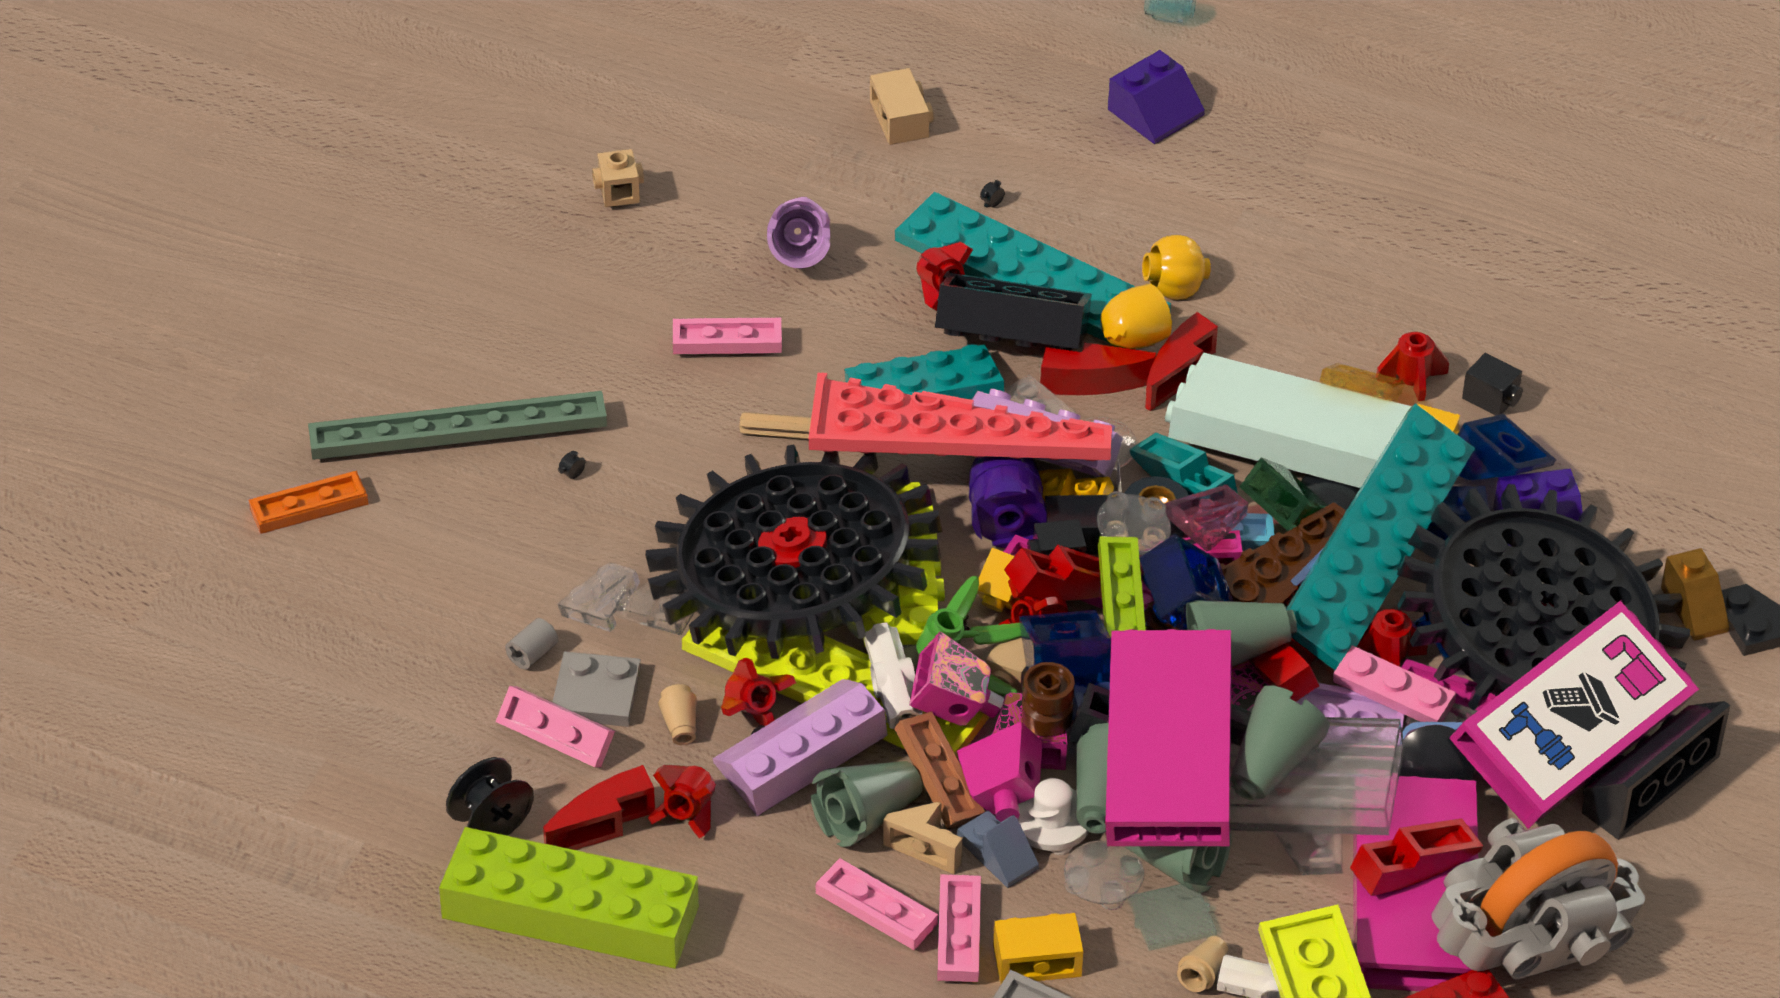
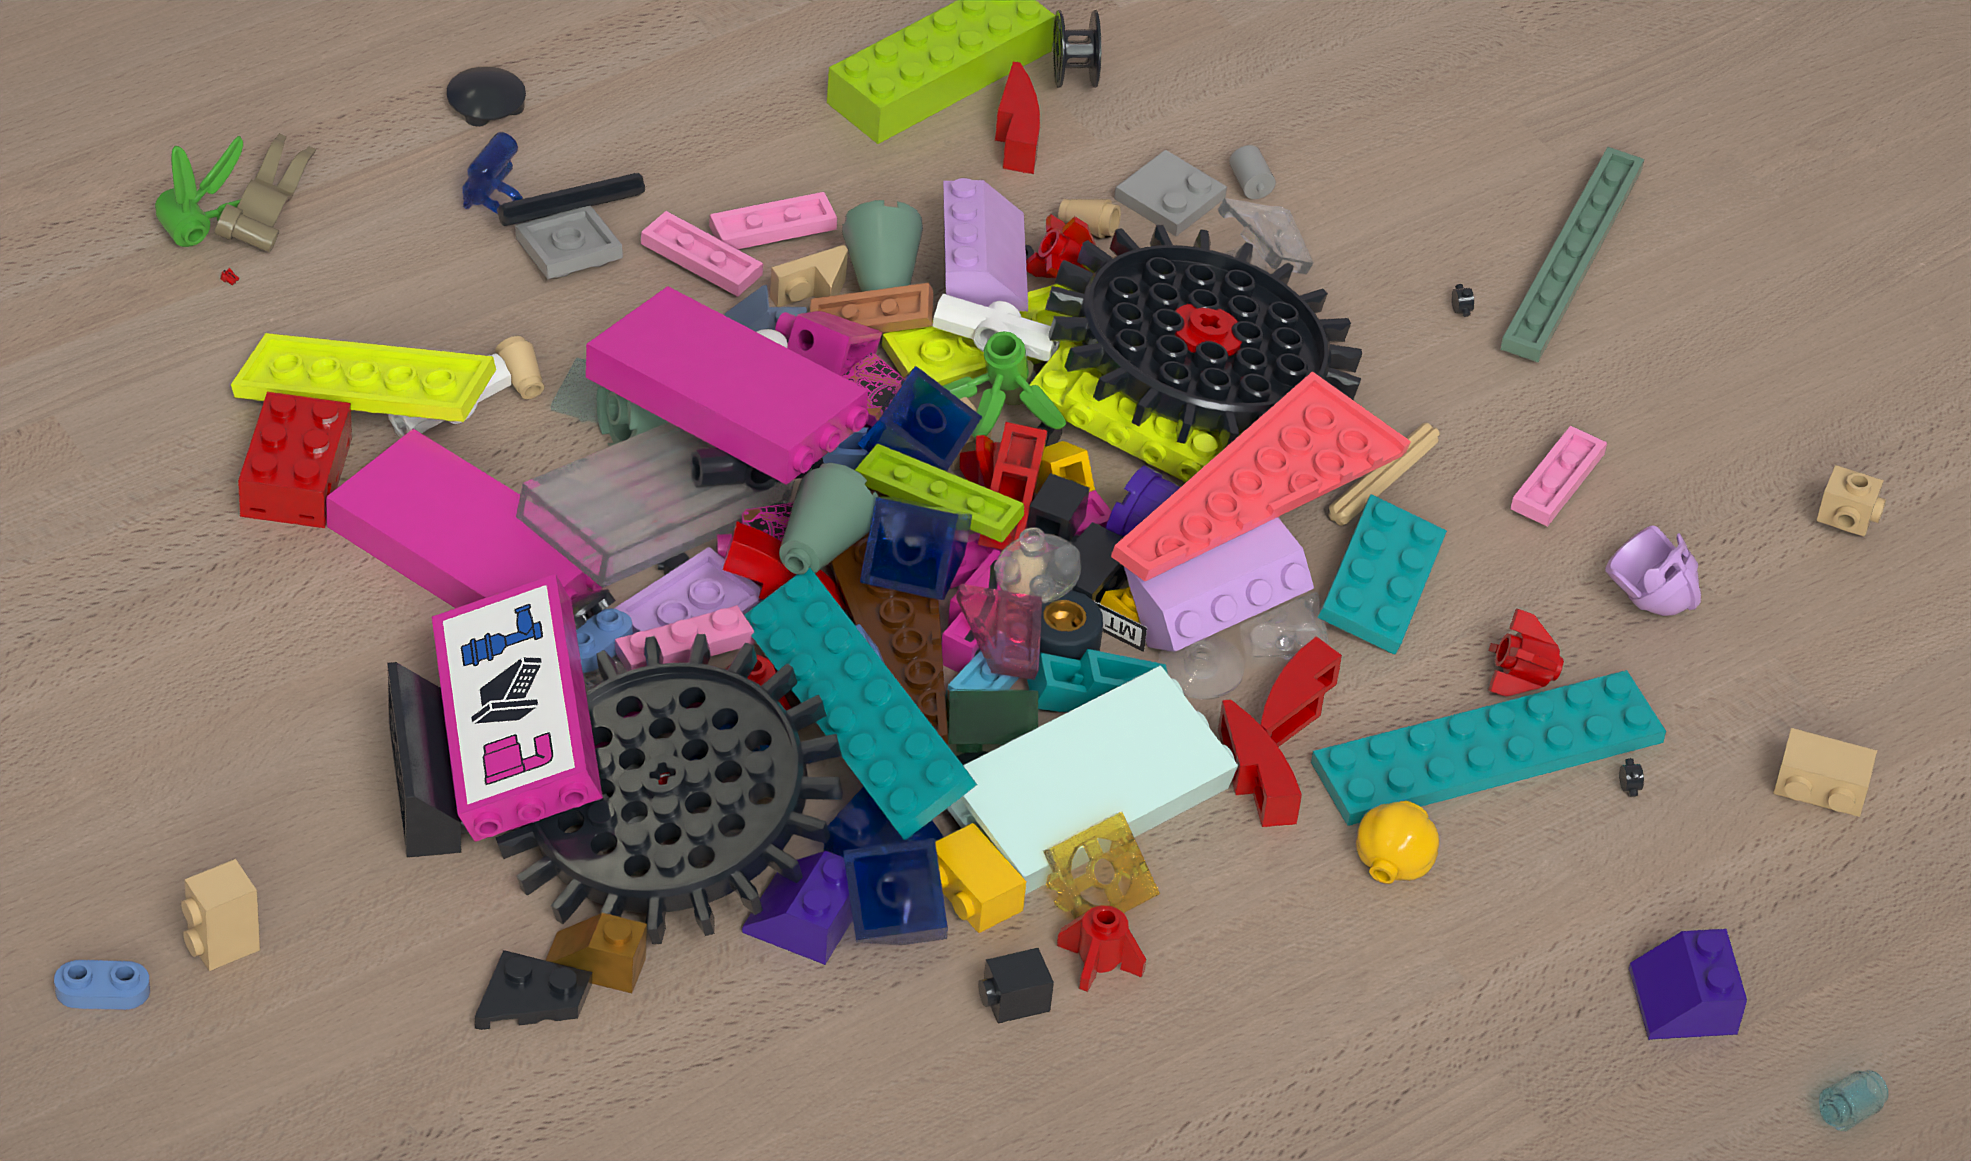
camera: 120 degrees right, 0 degrees up
(308, 502) = (1551, 135): orange tile -> none
(555, 726) = (1140, 142): bright pink plate -> none
(685, 796) = (988, 161): red brick -> none
(953, 683) = (944, 338): dark pink torso -> none
(1012, 311) = (1411, 656): black brick -> none
(1039, 947) = (631, 277): yellow brick -> none
(1048, 699) = (868, 364): reddish brown wheel -> none
(1137, 318) = (1315, 712): yellow piece -> none
(1275, 741) = (663, 456): sand green cone -> none
(1414, 855) = (472, 508): red slope -> none
(1538, 901) = (341, 558): light grey piece -> none

